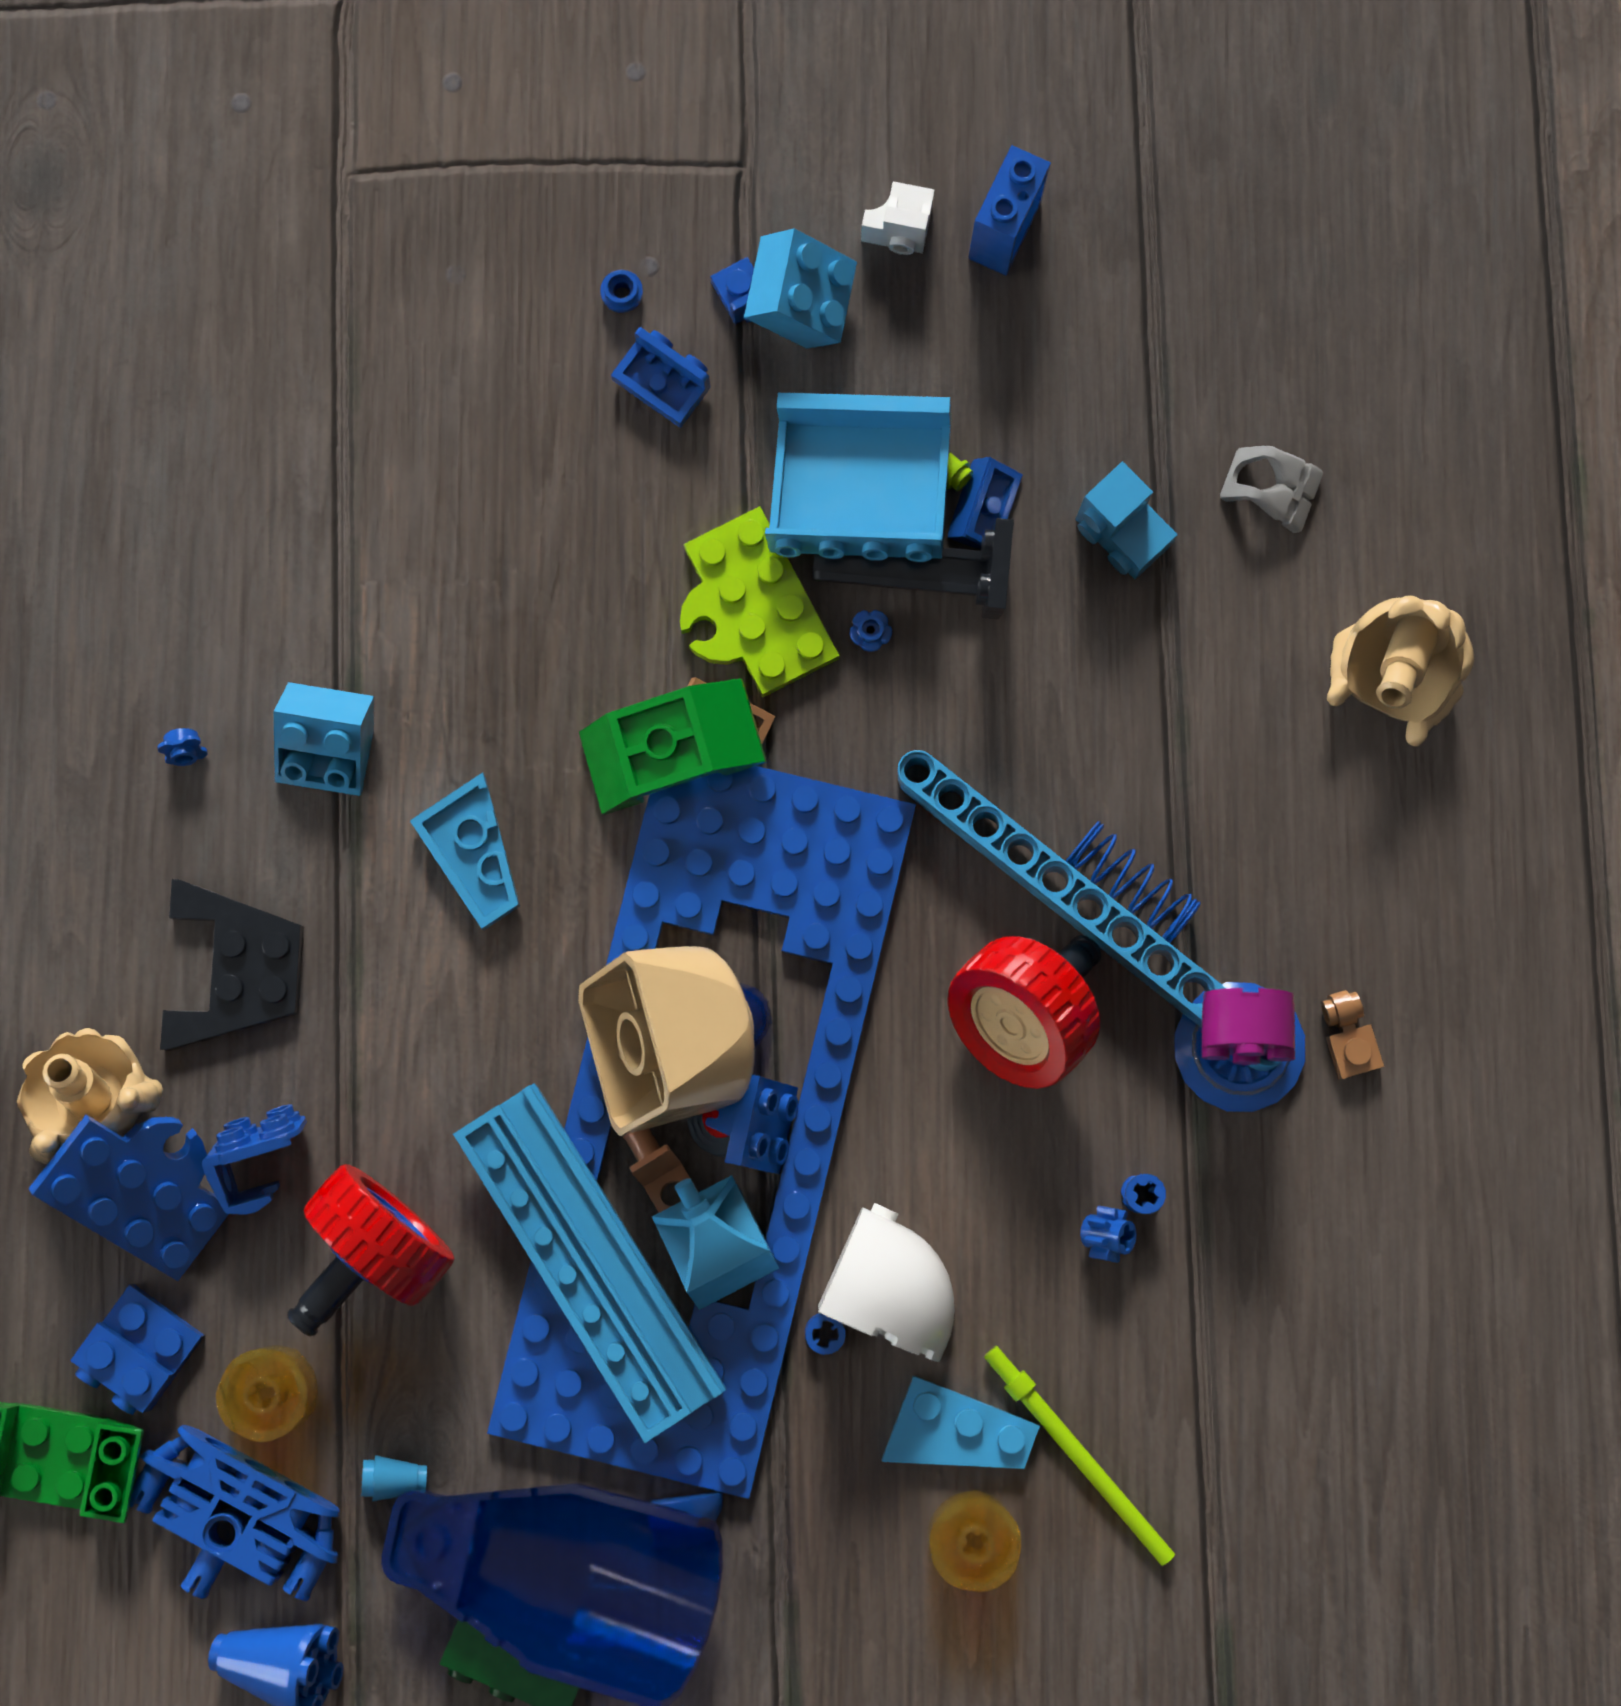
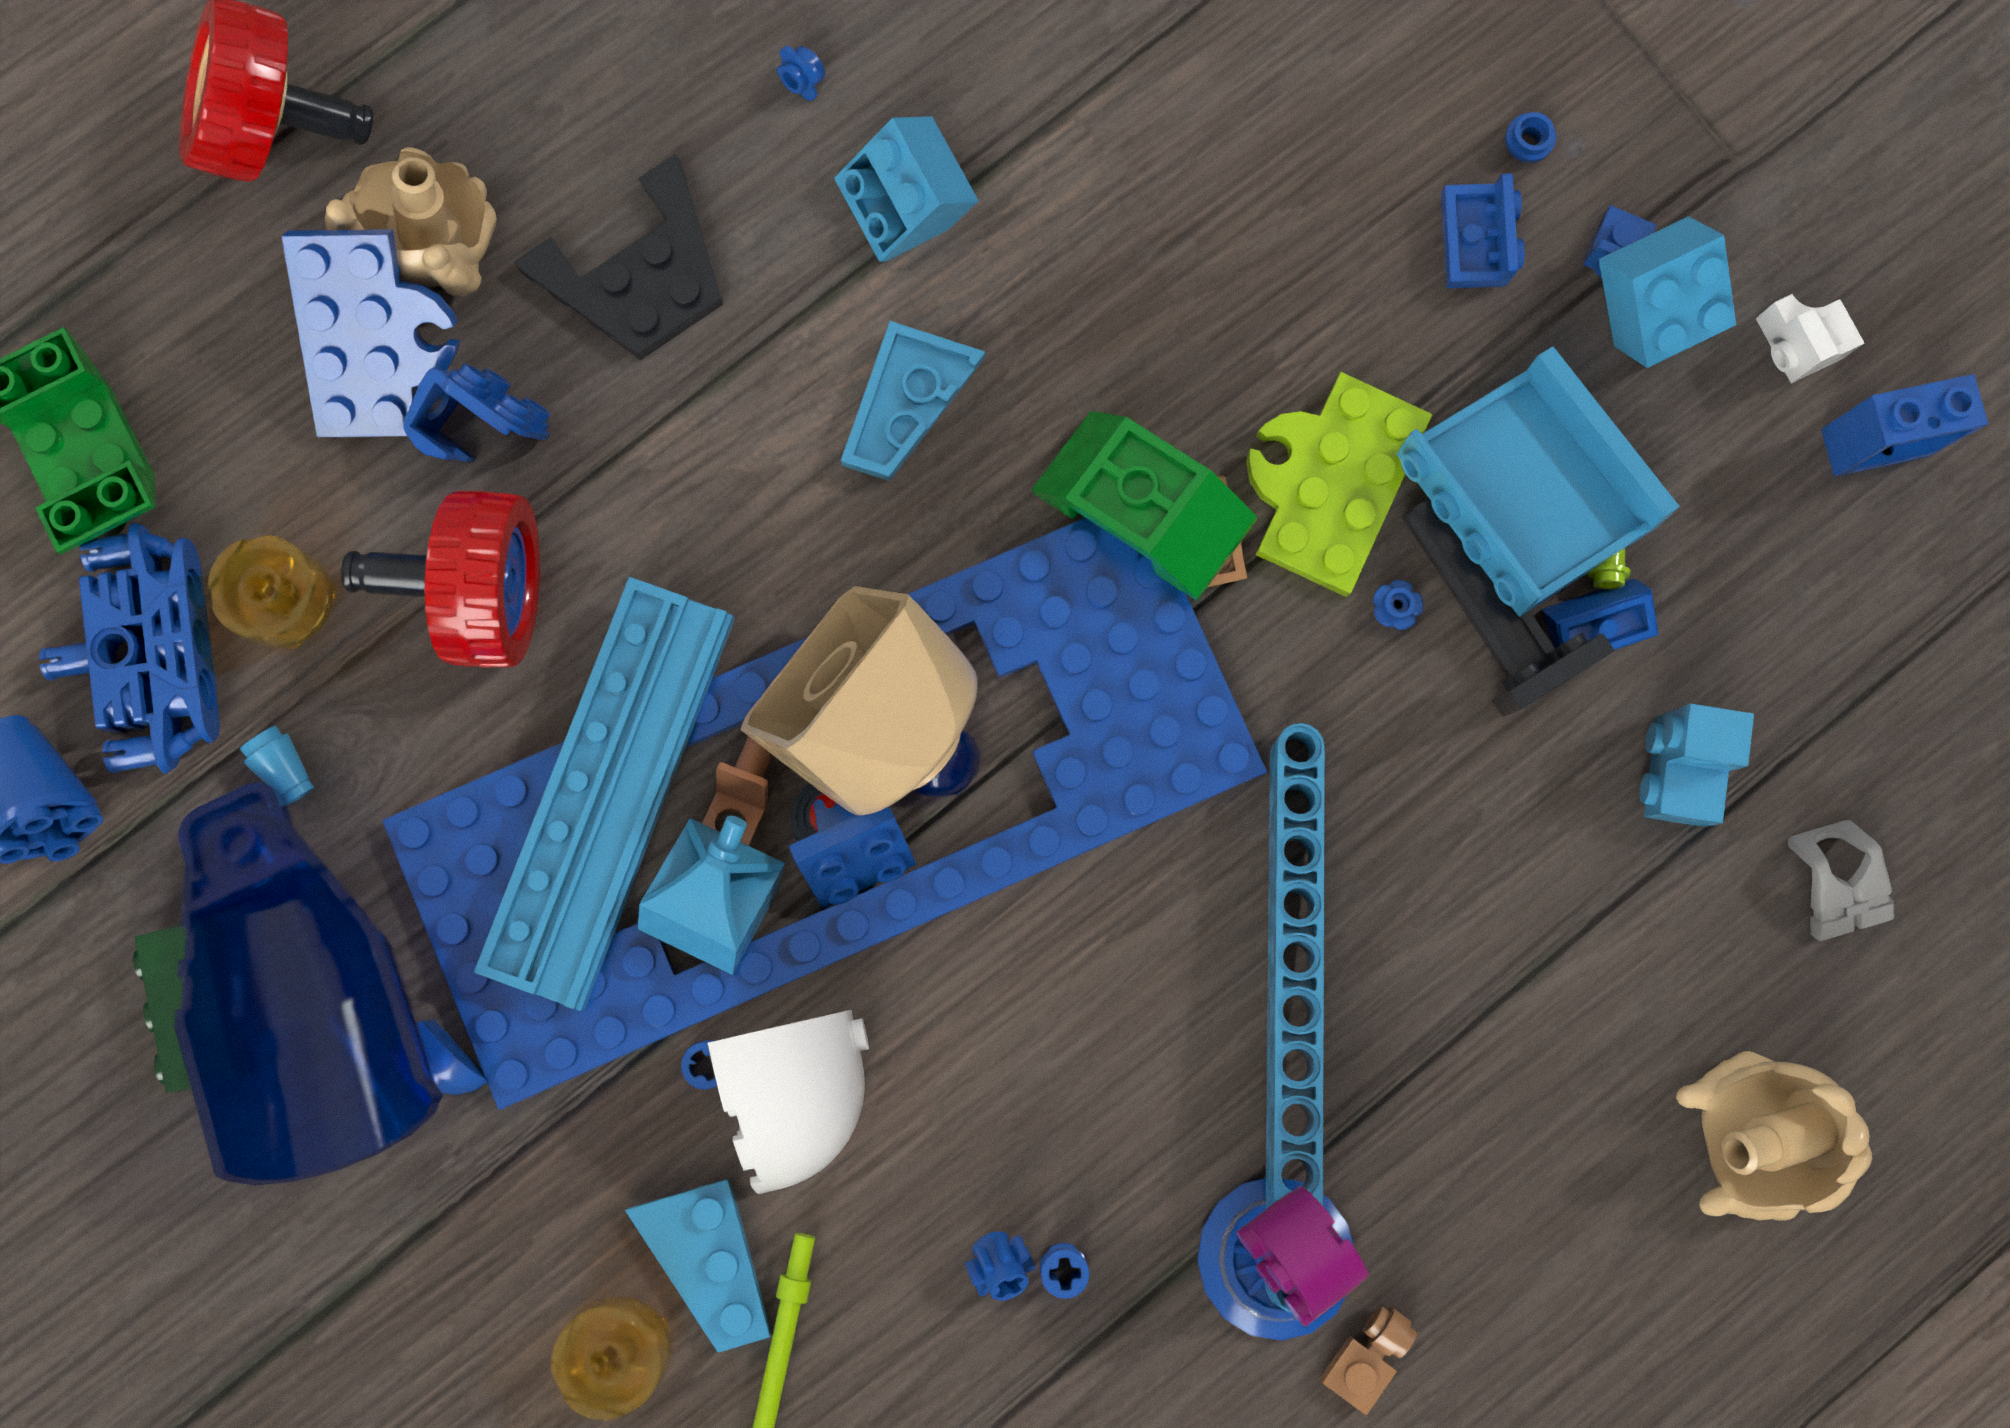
camera: 50 degrees right, 0 degrees up
(136, 1350) = (227, 448): blue plate -> none
(1027, 1008) = (1154, 1024): red wheel -> none
(1186, 914) = (1352, 1109): blue piece -> none

